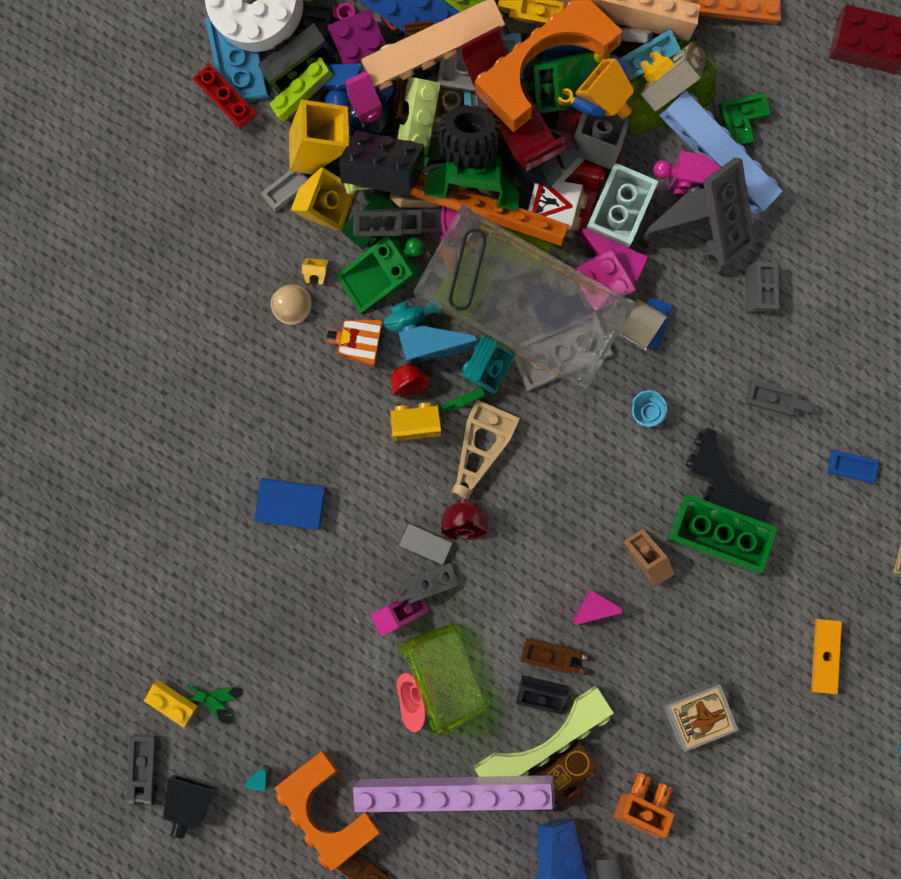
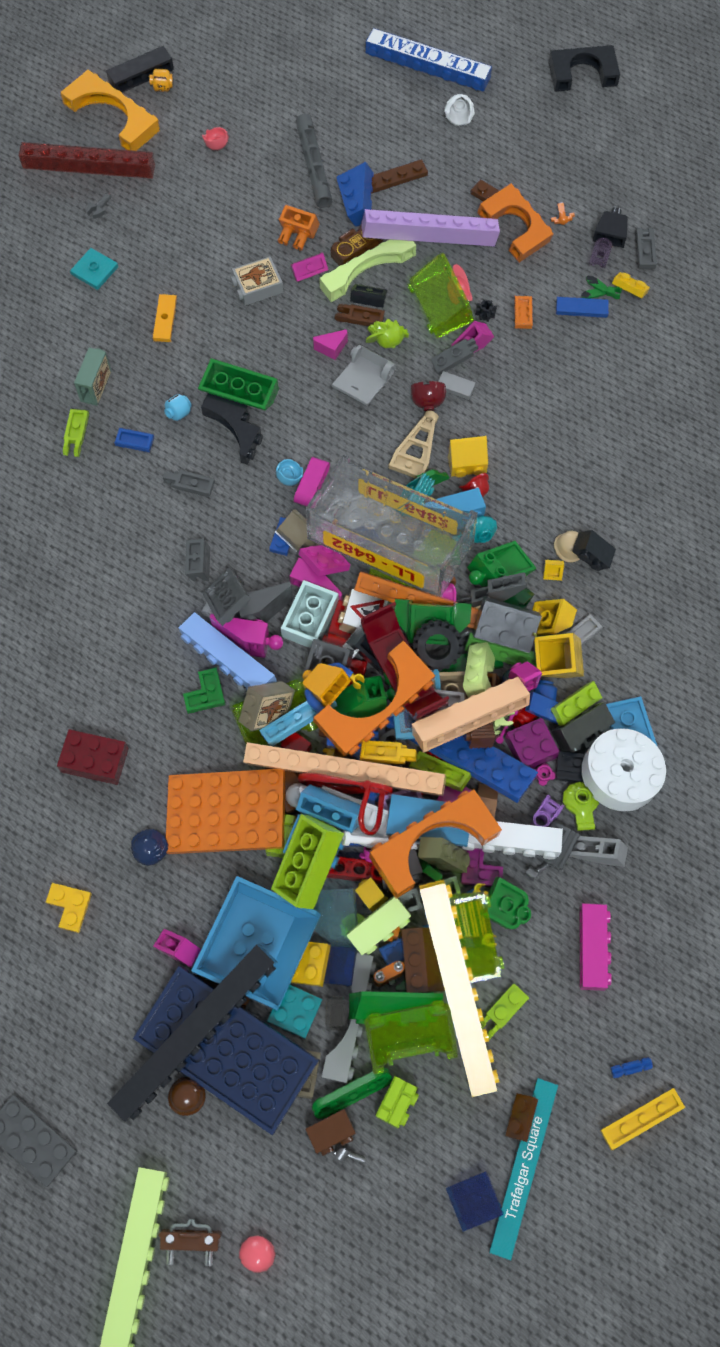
camera: 175 degrees left, 15 degrees down
(204, 769) = (602, 248): none -> clear purple plate
(233, 104) = (648, 708): red tile -> none
(242, 669) = (582, 307): none -> blue tile
(256, 824) = (563, 219): none -> orange piece
(259, 780) = (565, 241): teal slope -> none
(262, 284) = (594, 550): none -> black brick
(290, 503) = (558, 408): blue piece -> none
(326, 660) = (523, 312): none -> orange plate
(358, 340) = (515, 517): torso -> none
(374, 667) = (486, 310): none -> black gear
(477, 269) = (444, 545): black piece -> none
(519, 619) = (387, 333): none -> lime hair
(548, 561) = (364, 375): none -> light grey door
(619, 396) = (311, 480): none -> dark pink beam
(627, 739) = (309, 267): none -> dark pink plate
(636, 34) = (303, 742): light grey tile -> none
(649, 557) = (291, 376): medium nougat slope -> none
(657, 69) = (281, 707): yellow tile -> none
(800, 510) = (177, 407): none -> medium azure head

